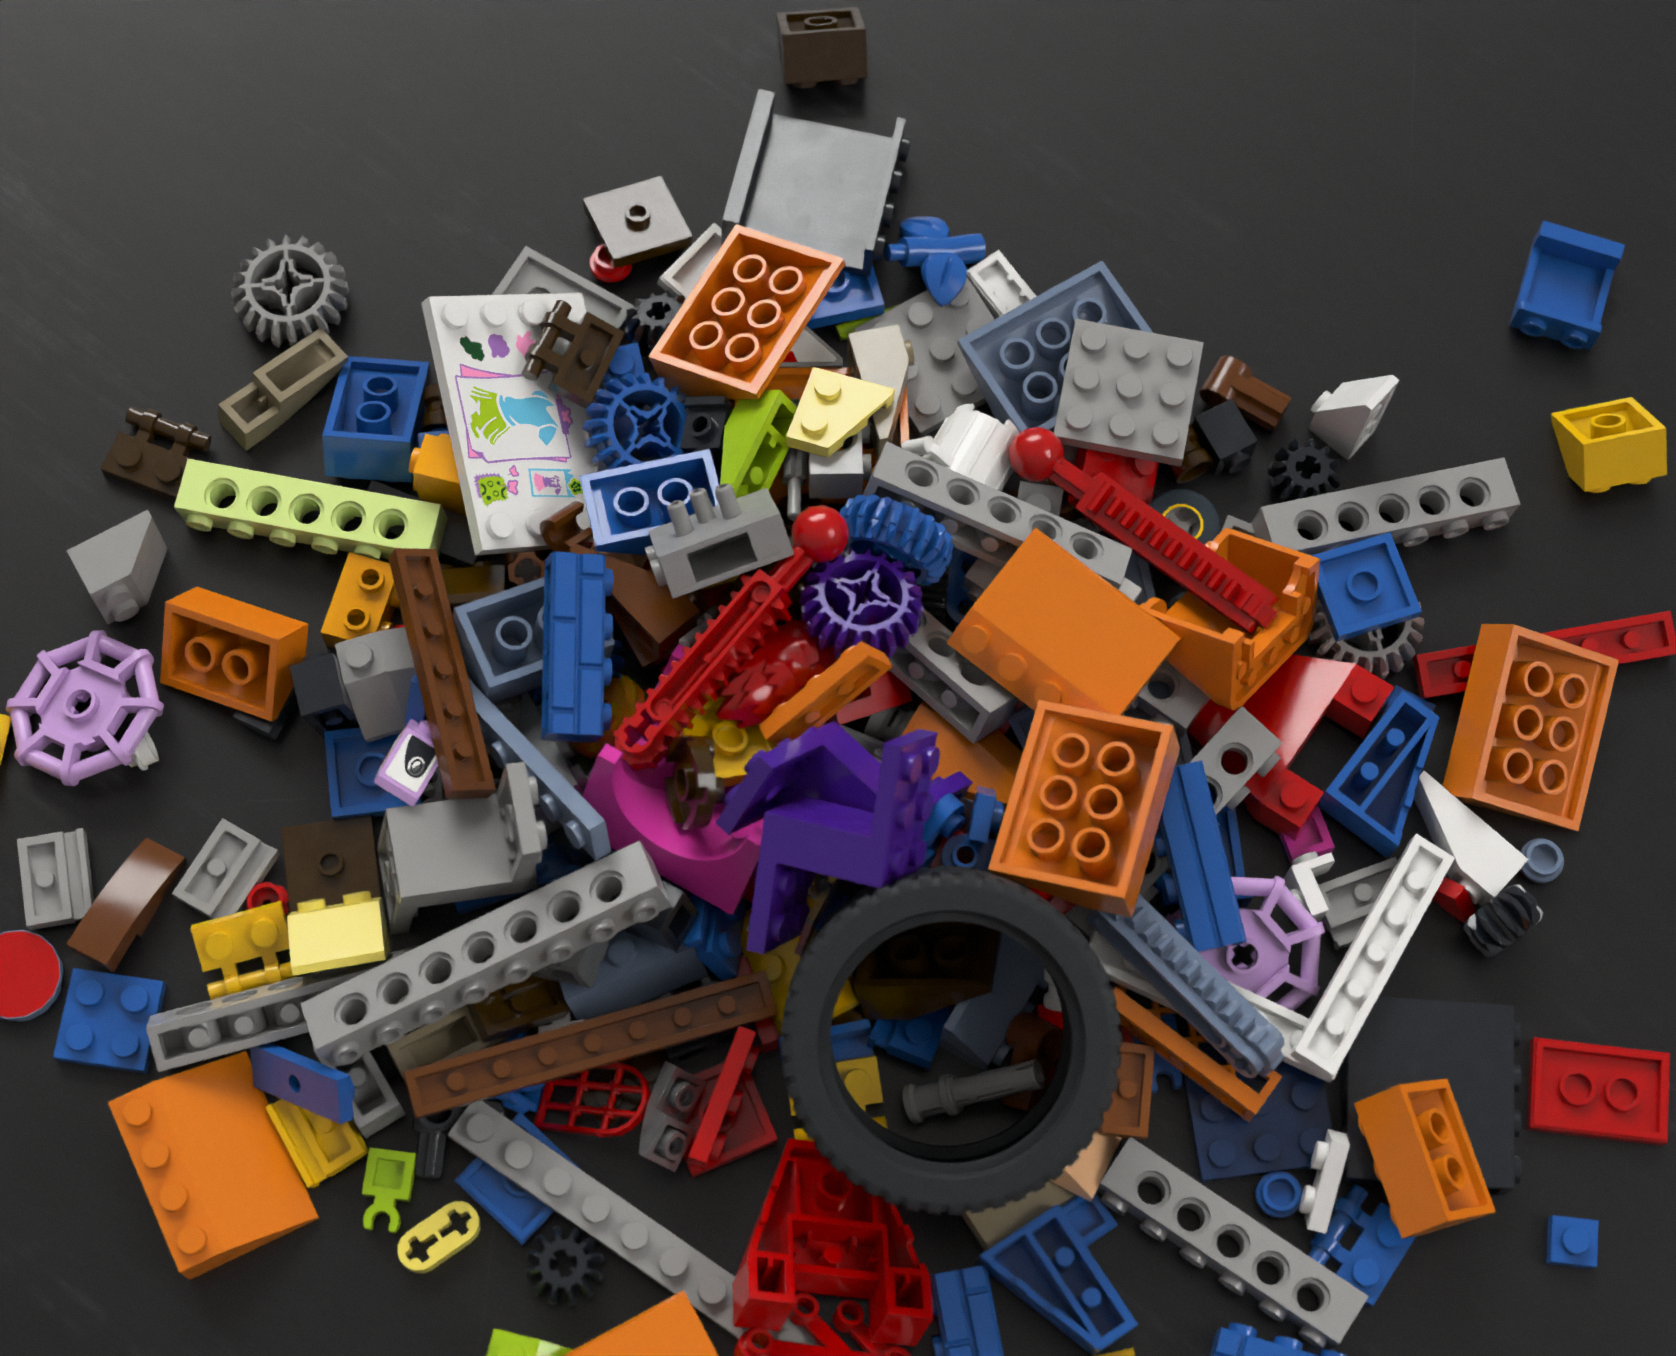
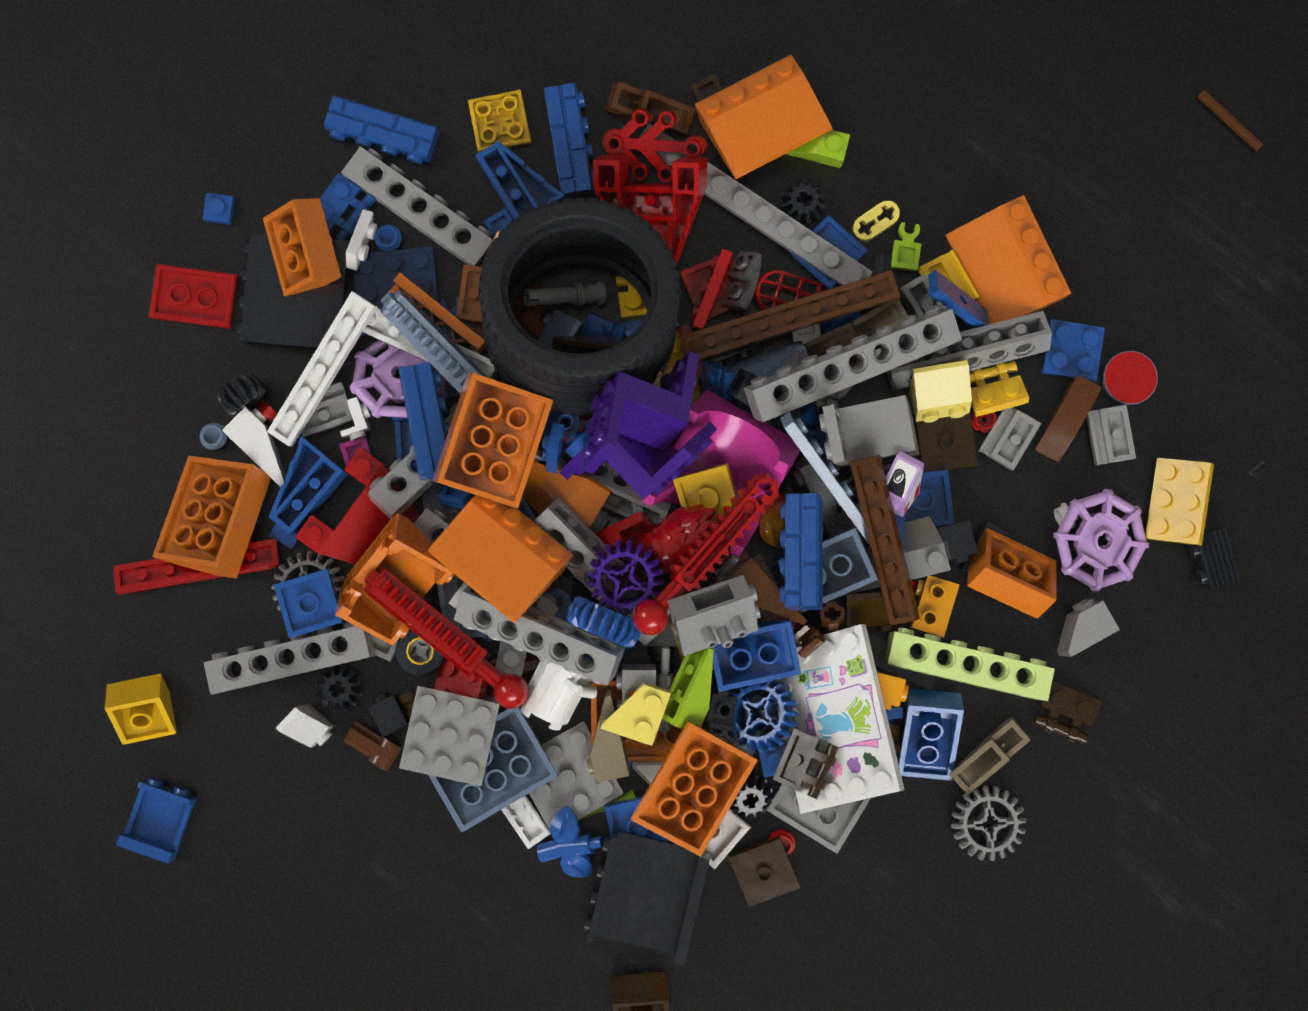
camera: 175 degrees left, 15 degrees up
(694, 784) = (731, 459): dark brown plate -> none
(826, 693) = (649, 518): orange plate -> none

